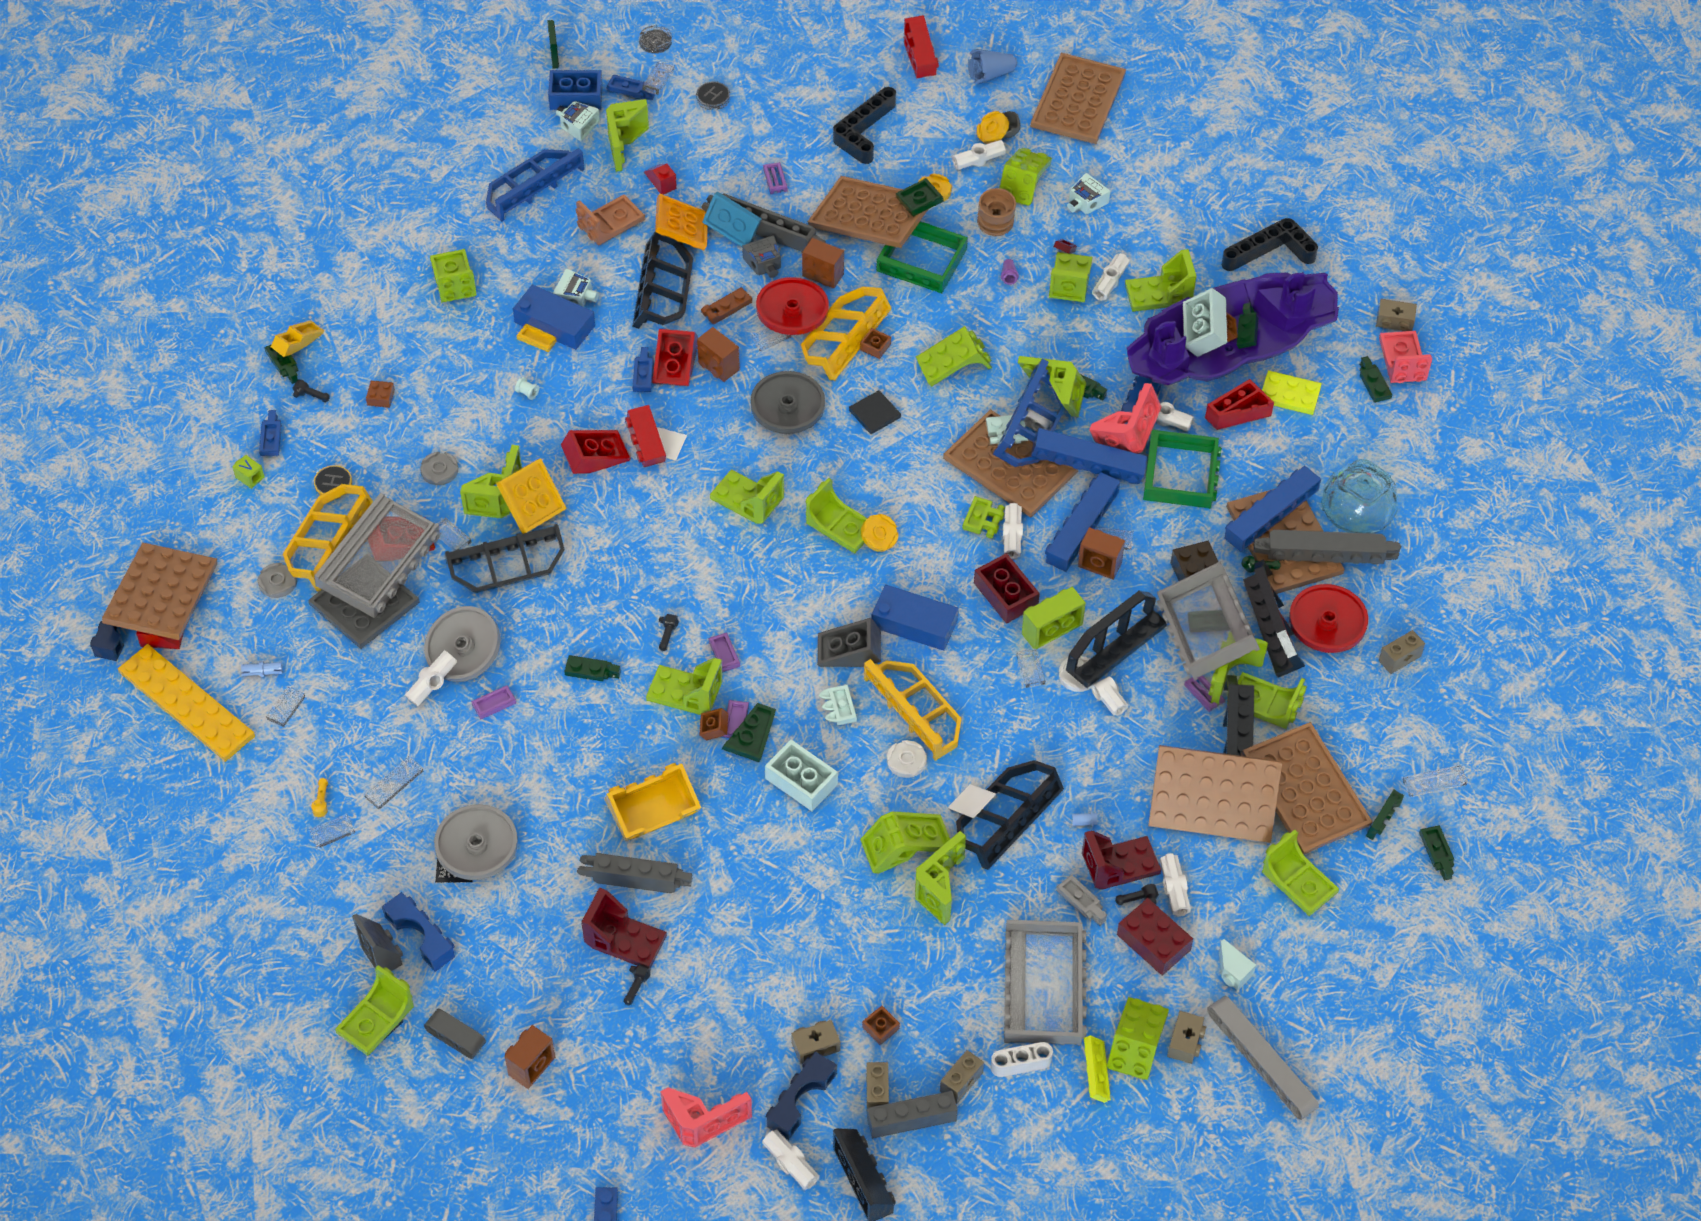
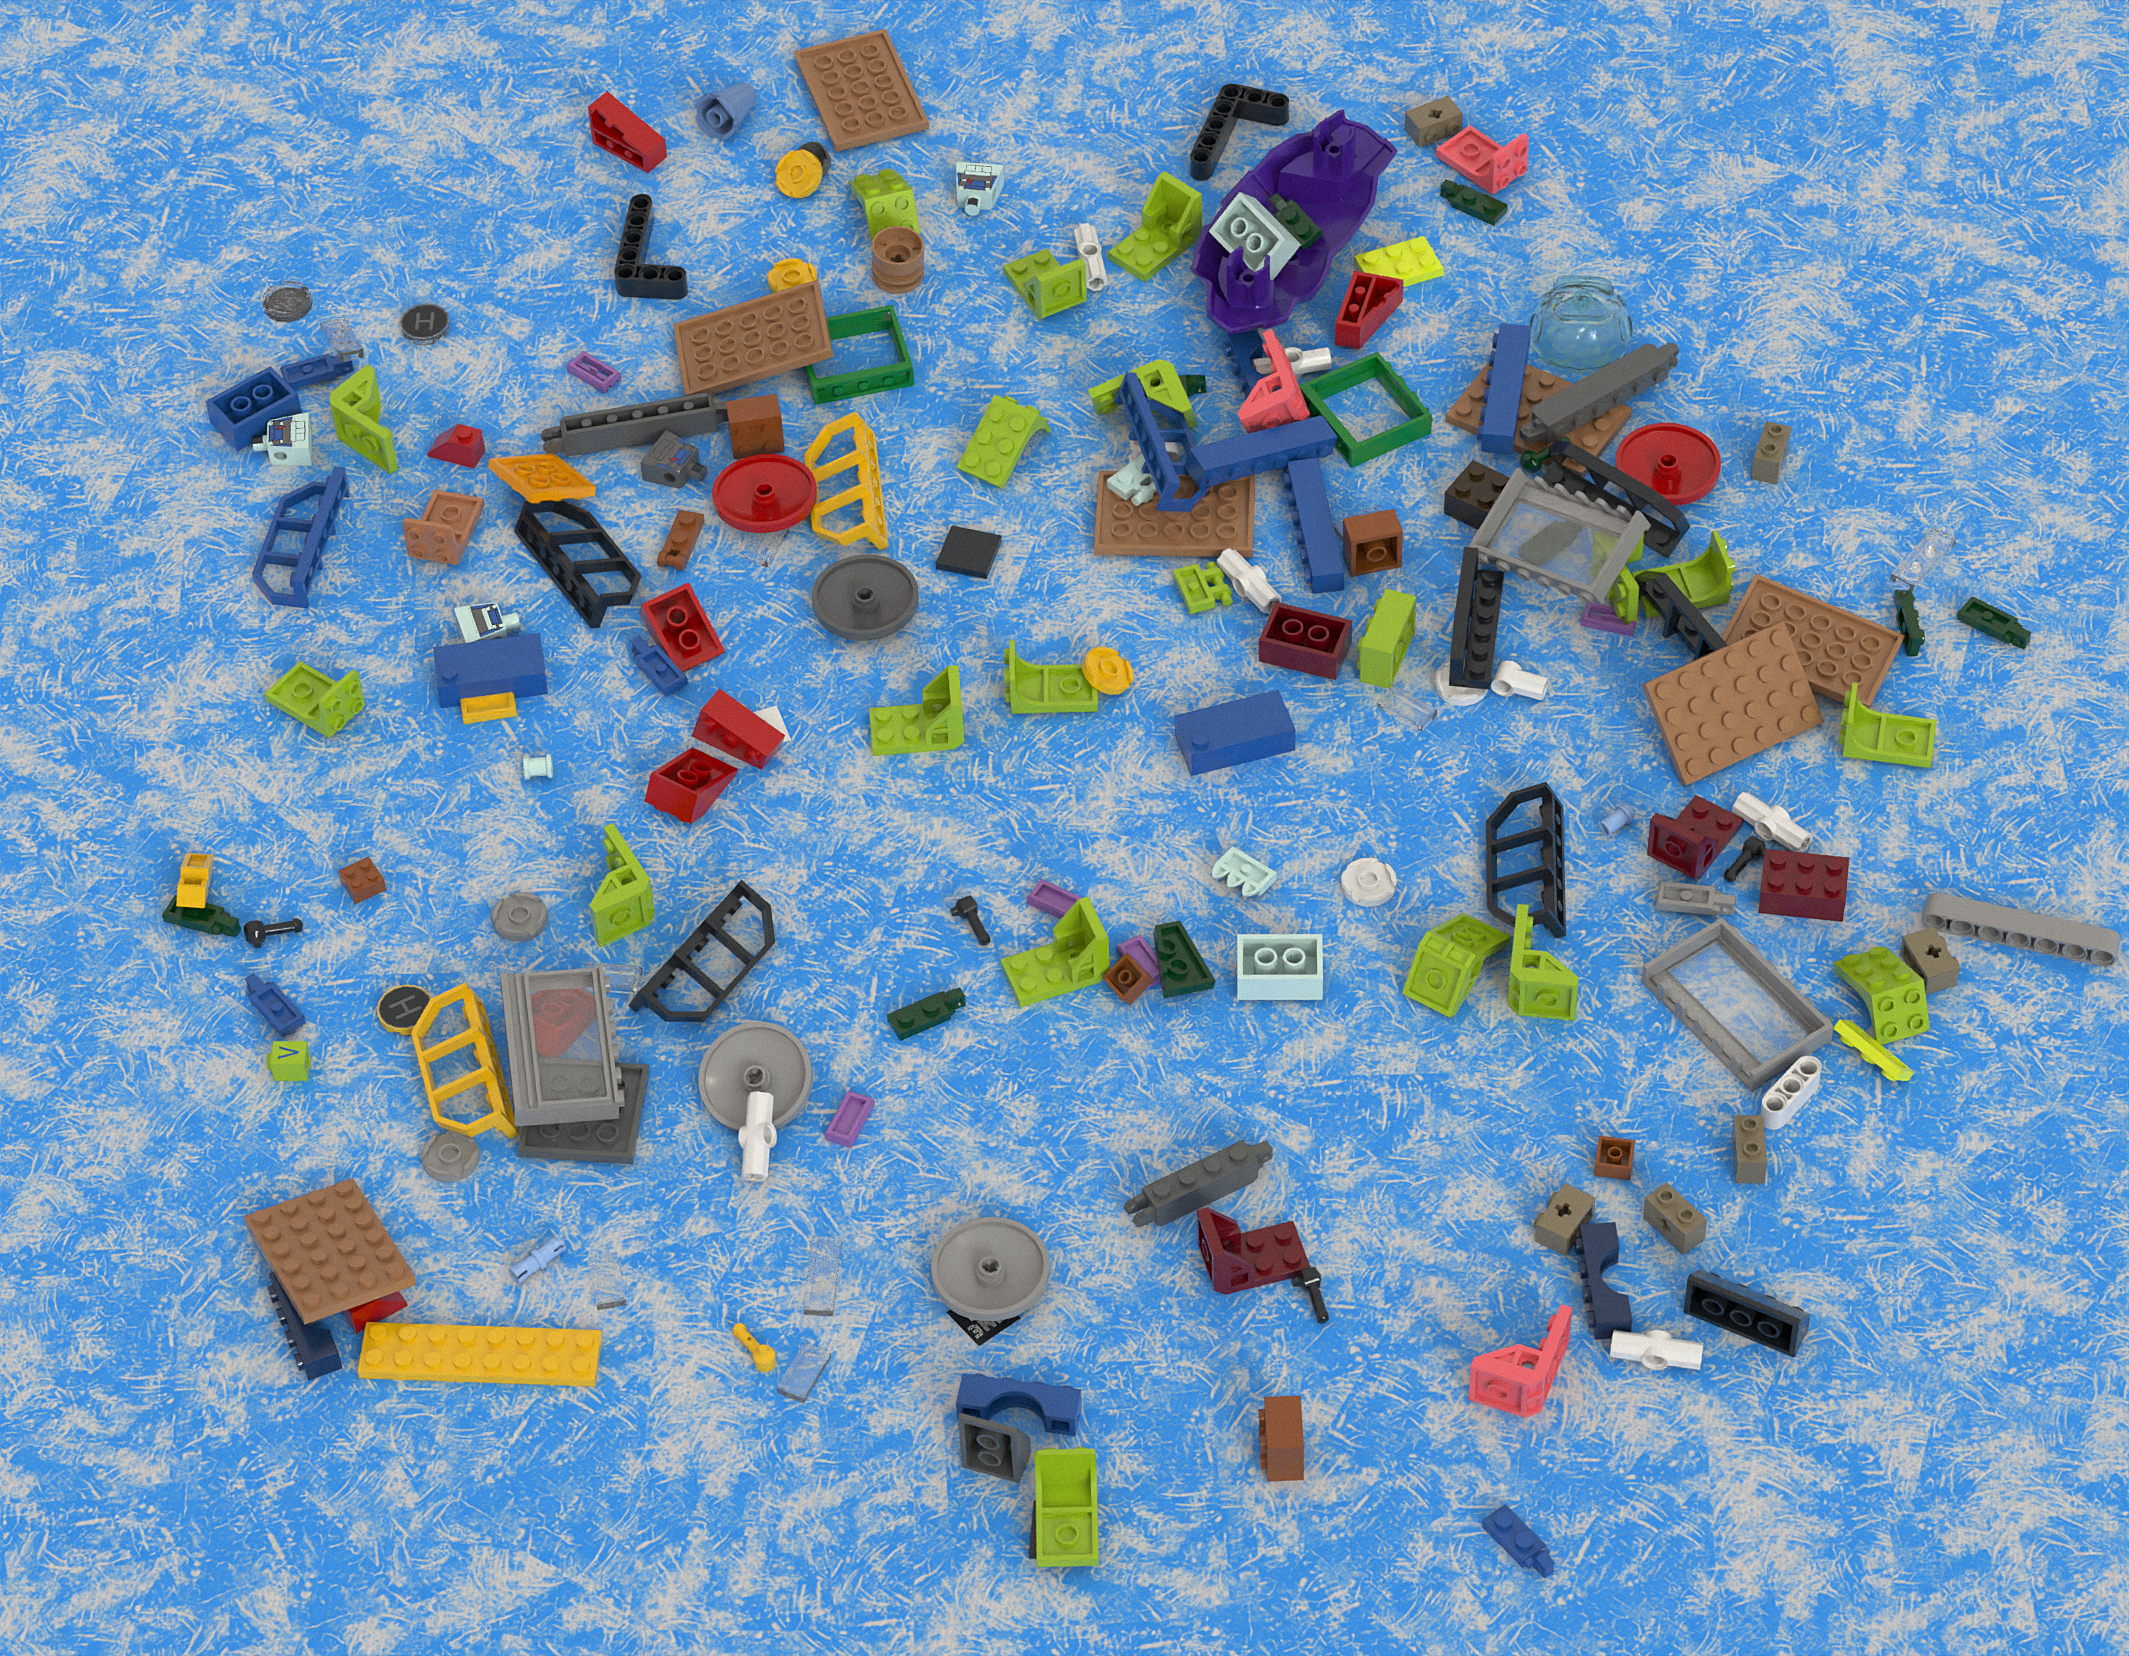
camera: 35 degrees left, 5 degrees down
(455, 1033) = (1169, 1477): dark grey beam -> none
(531, 496) = (678, 870): yellow plate -> none
(553, 44) = (173, 372): dark green tile -> none
(653, 802) = (1145, 1098): yellow windscreen -> none
(718, 354) = (734, 593): dark orange brick -> none
(731, 220) = (602, 440): dark azure plate -> none
(850, 645) = (1192, 805): dark grey slope -> none
(875, 343) = (897, 479): dark orange piece -> none
(908, 712) = (1322, 828): yellow plate -> none
(912, 1114) = (1736, 1219): dark grey brick -> none
(919, 197) = (804, 289): dark green tile -> none
(971, 801) = (1482, 877): white sticker -> none
(978, 154) = (810, 212): white piece -> none
(1009, 272) = (973, 318): medium lavender cone -> none
(1065, 246) = (1006, 254): dark red tile -> none
(1234, 966) = (1906, 861): light aqua slope -> none

